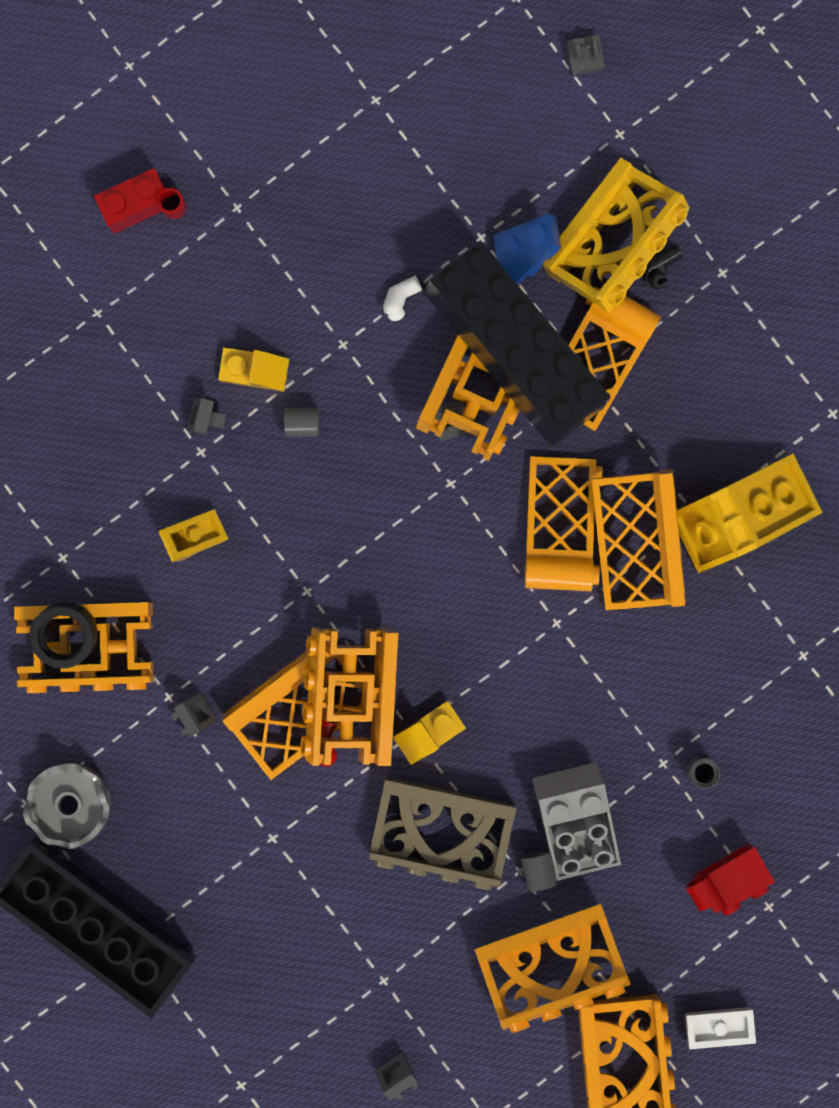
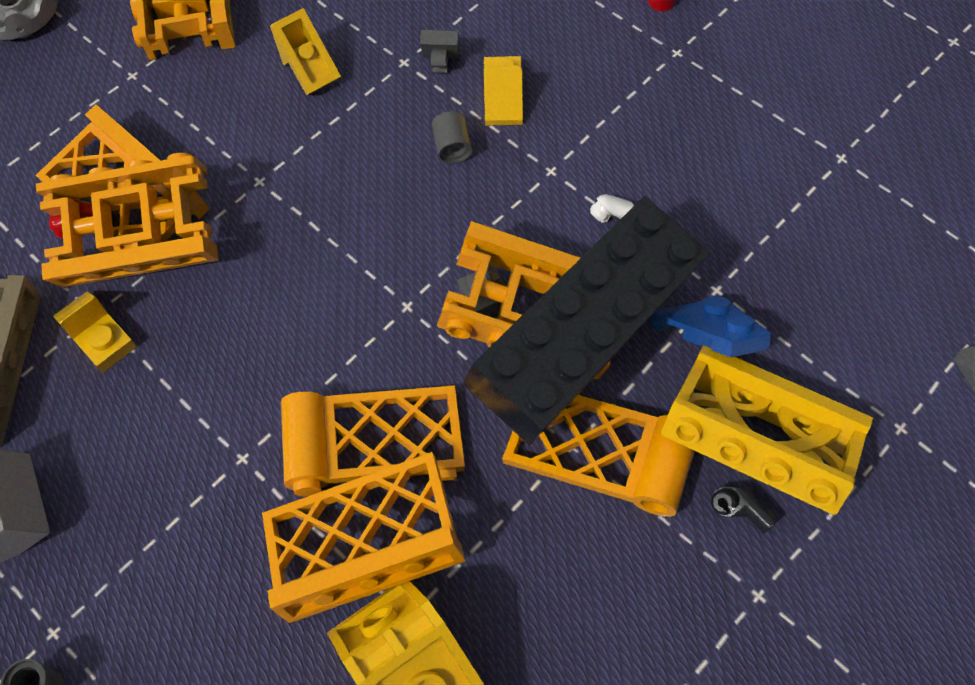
camera: 80 degrees right, 25 degrees down
(194, 714) = (109, 89): dark grey tile -> none

